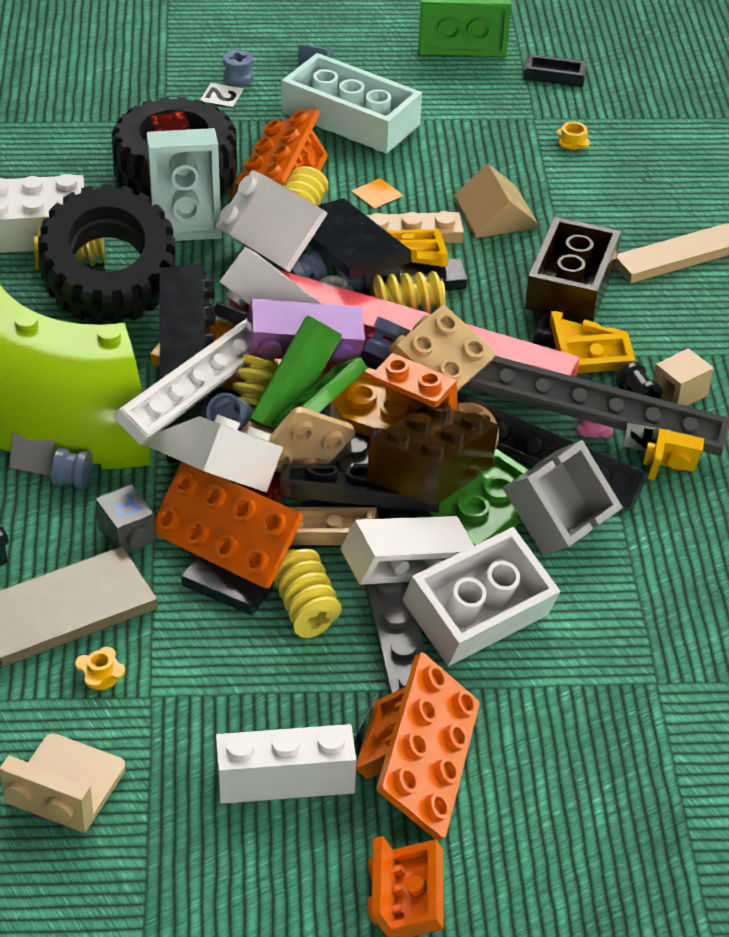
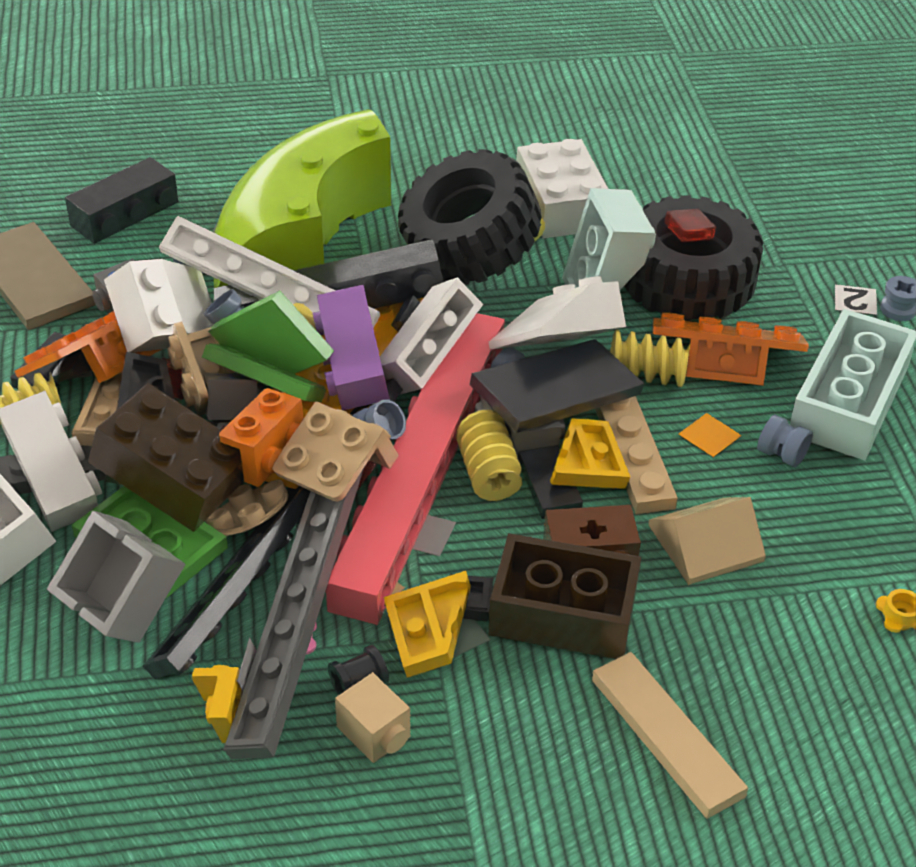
camera: 85 degrees right, 0 degrees up
(404, 150) = (785, 440): none -> sand blue wheel
(508, 257) = (594, 527): none -> reddish brown brick

